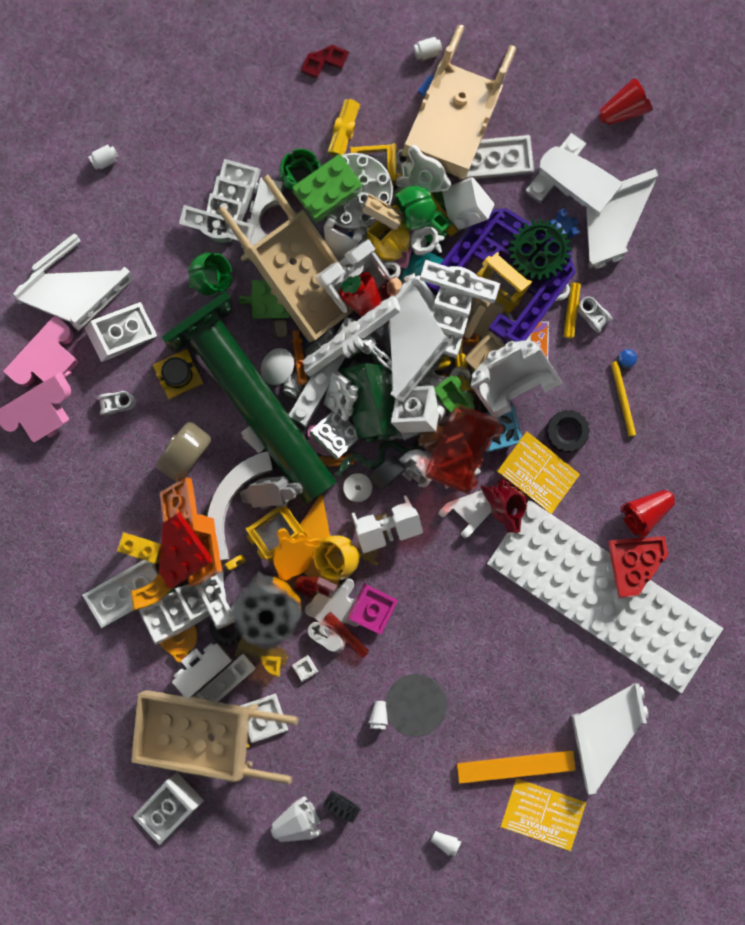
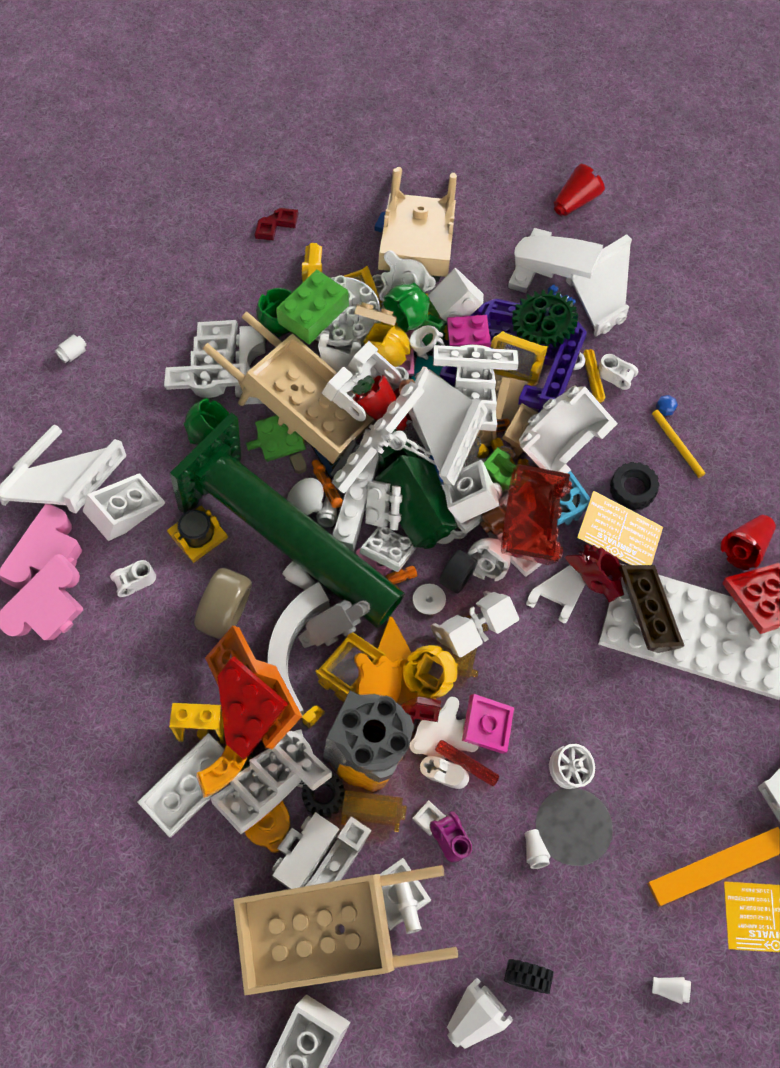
camera: 15 degrees left, 20 degrees down
(267, 735) = (407, 907): none -> white pin
(272, 664) = (390, 818): yellow tile -> none
(316, 685) = (451, 835): none -> magenta piece
(345, 464) = (409, 573): clear green animal -> none
(427, 48) = (373, 190): white brick -> none
(427, 661) = (571, 766): none -> white wheel
(466, 244) = (468, 331): none -> dark pink plate
(502, 158) = (479, 261): white tile -> none
(537, 549) = (651, 608): none -> dark brown slope

